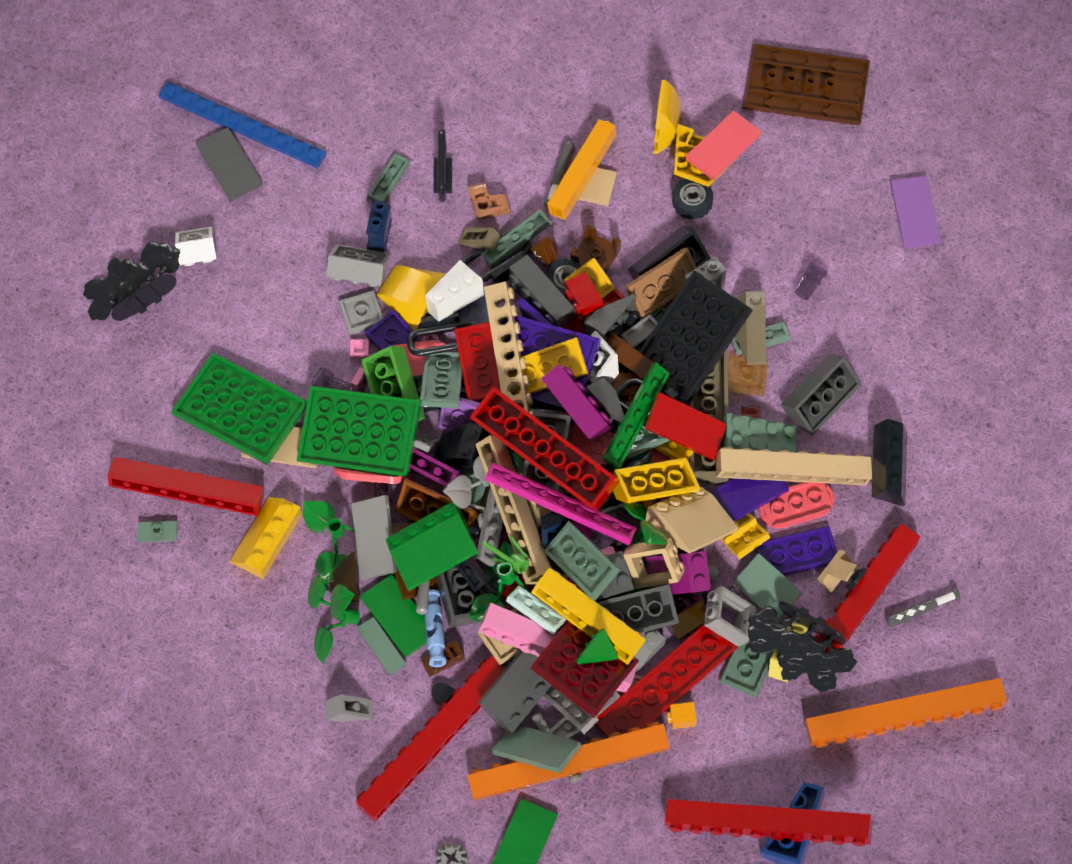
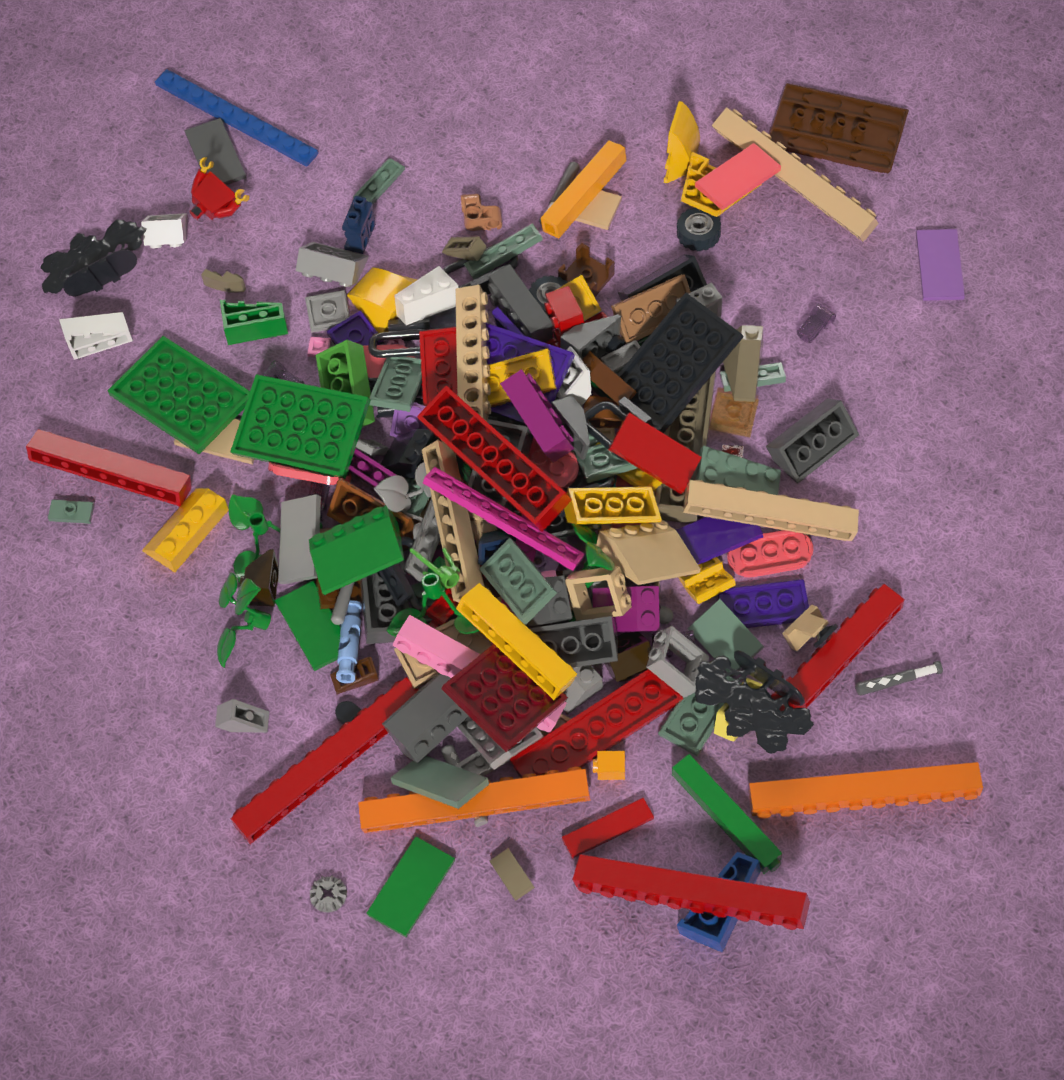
camera: 10 degrees right, 5 degrees down
(150, 357) = (95, 333): none -> white wedge
(236, 209) = (212, 195): none -> red torso
(265, 294) = (228, 282): none -> dark tan slope
(294, 330) = (252, 321): none -> green wedge
(358, 380) = (312, 376): bright pink tile -> none
(381, 646) = (289, 655): sand green tile -> none
(442, 168) = (437, 175): black bar -> none
(536, 610) = (460, 629): light aqua tile -> none
(545, 250) = (531, 263): reddish brown hat -> none
(598, 649) = (521, 677): green piece -> none
(610, 823) = (512, 874): none -> dark tan slope
(635, 416) = (600, 436): green tile -> none
(687, 771) = (607, 828): none -> red tile
(776, 137) = (799, 176): none -> tan brick
(789, 747) = (727, 814): none -> green brick
(889, 462) = (879, 517): black slope -> none

